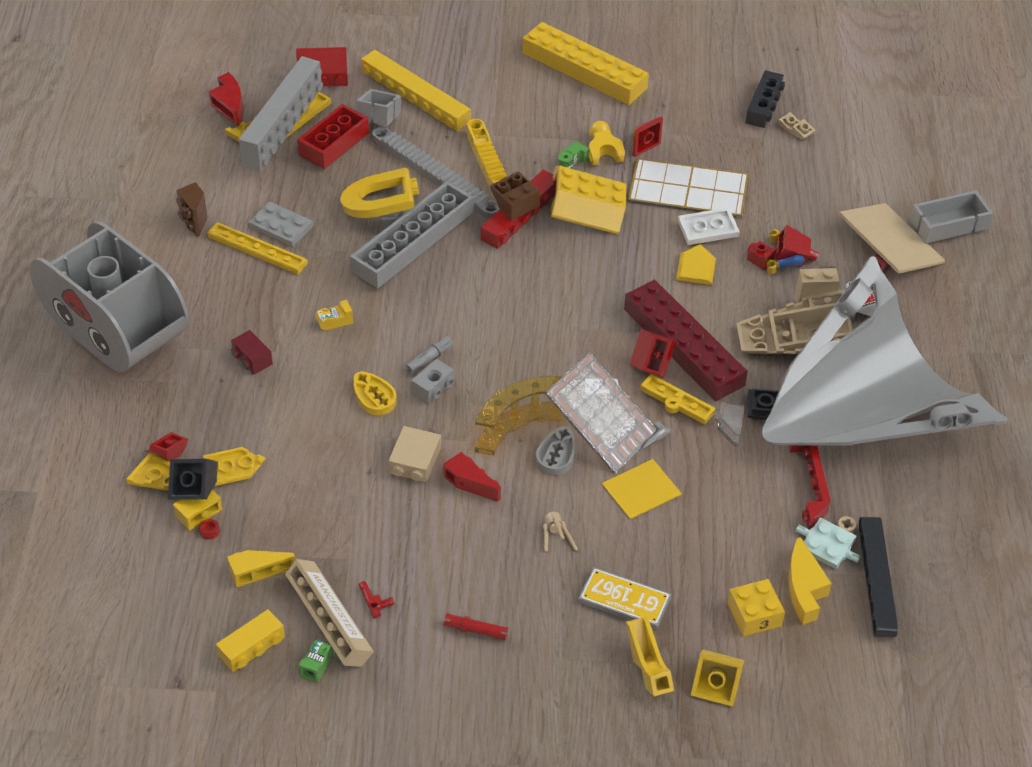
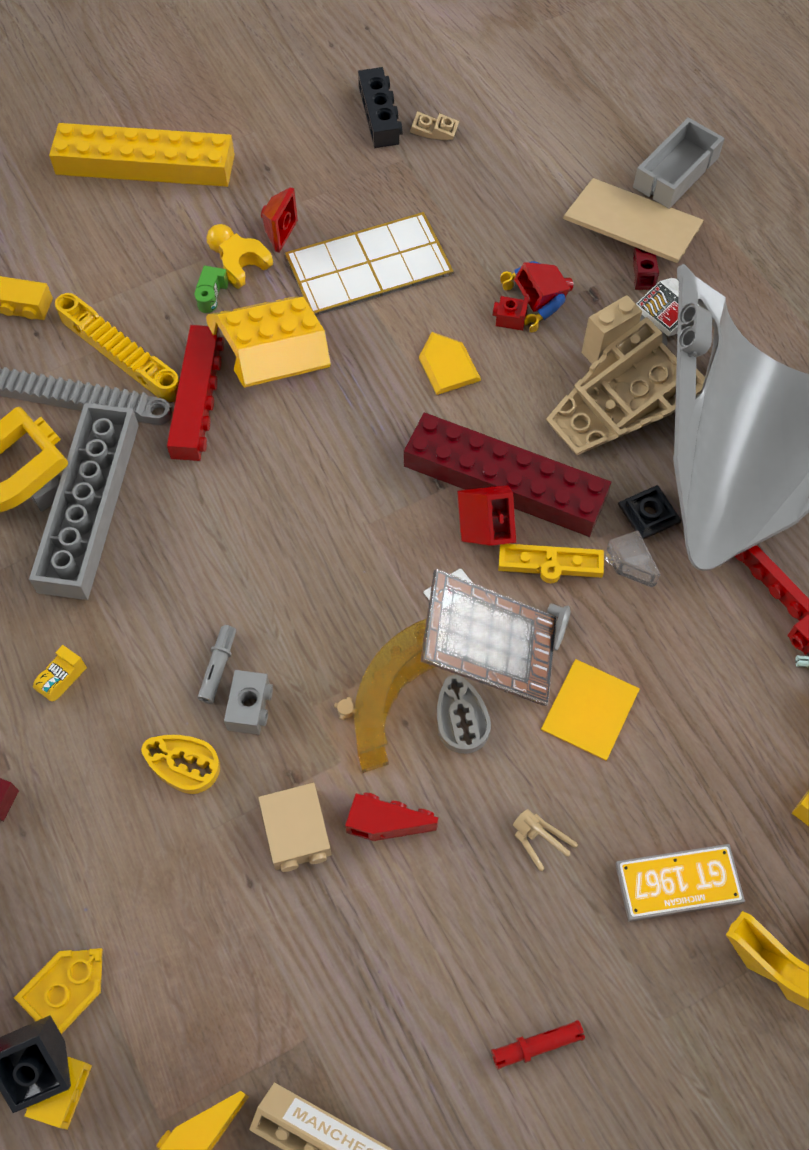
camera: 30 degrees left, 15 degrees up
(209, 529) = (94, 1111): red tile -> none
(374, 601) = (384, 1085): red hose -> none
(515, 195) = (185, 381): reddish brown slope -> none
(708, 226) = (427, 304): white plate -> none

